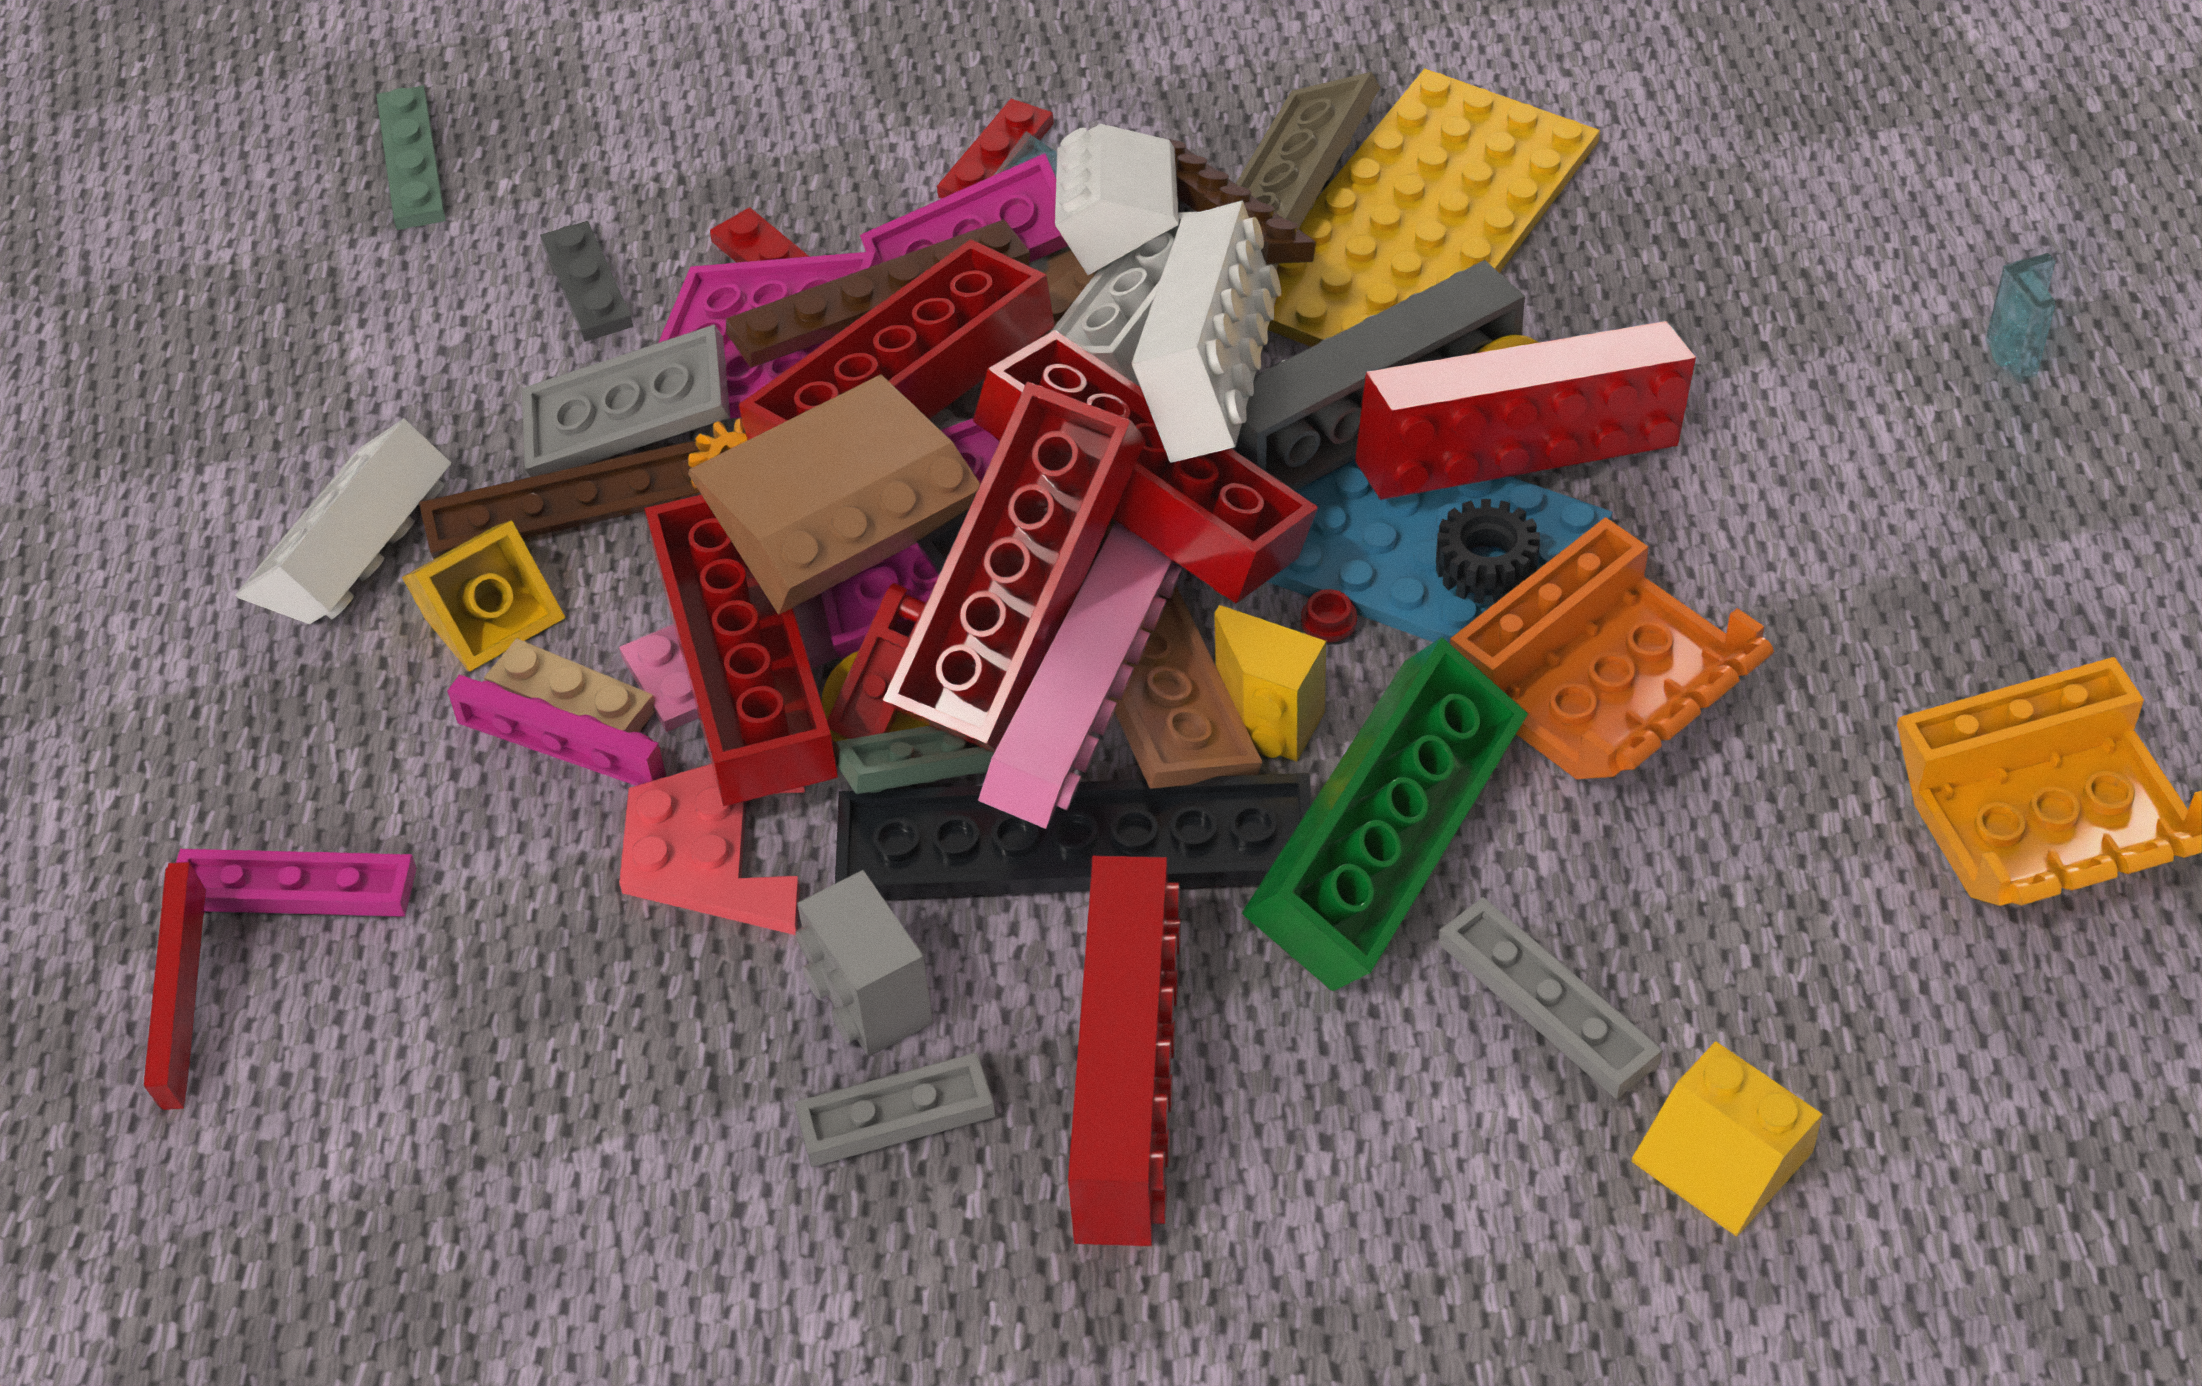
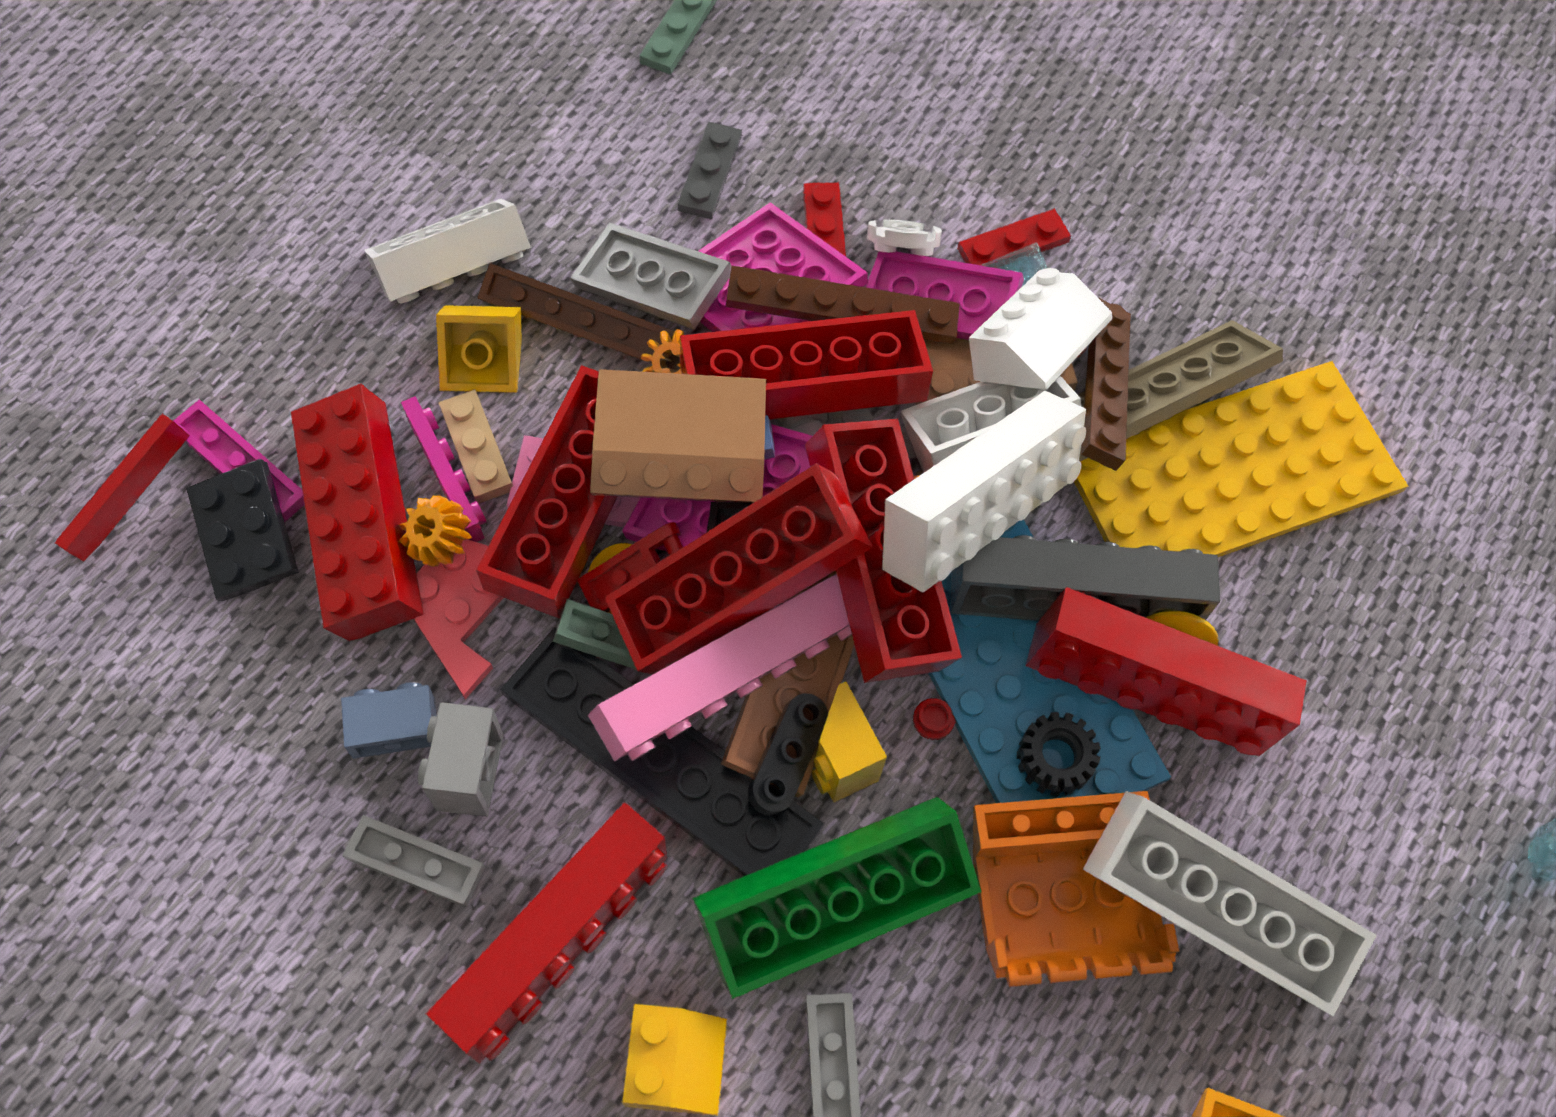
camera: 30 degrees right, 15 degrees up
(368, 937) = (242, 530): none -> black plate
(500, 827) = (355, 514): none -> red brick
(595, 779) = (435, 531): none -> light orange gear
(735, 999) = (387, 720): none -> sand blue brick
(887, 204) = (905, 235): none -> white plate
(1214, 729) = (776, 765): none -> black plate
(1354, 1085) = (674, 1060): none -> yellow slope
(1768, 552) = (1230, 902): none -> white brick

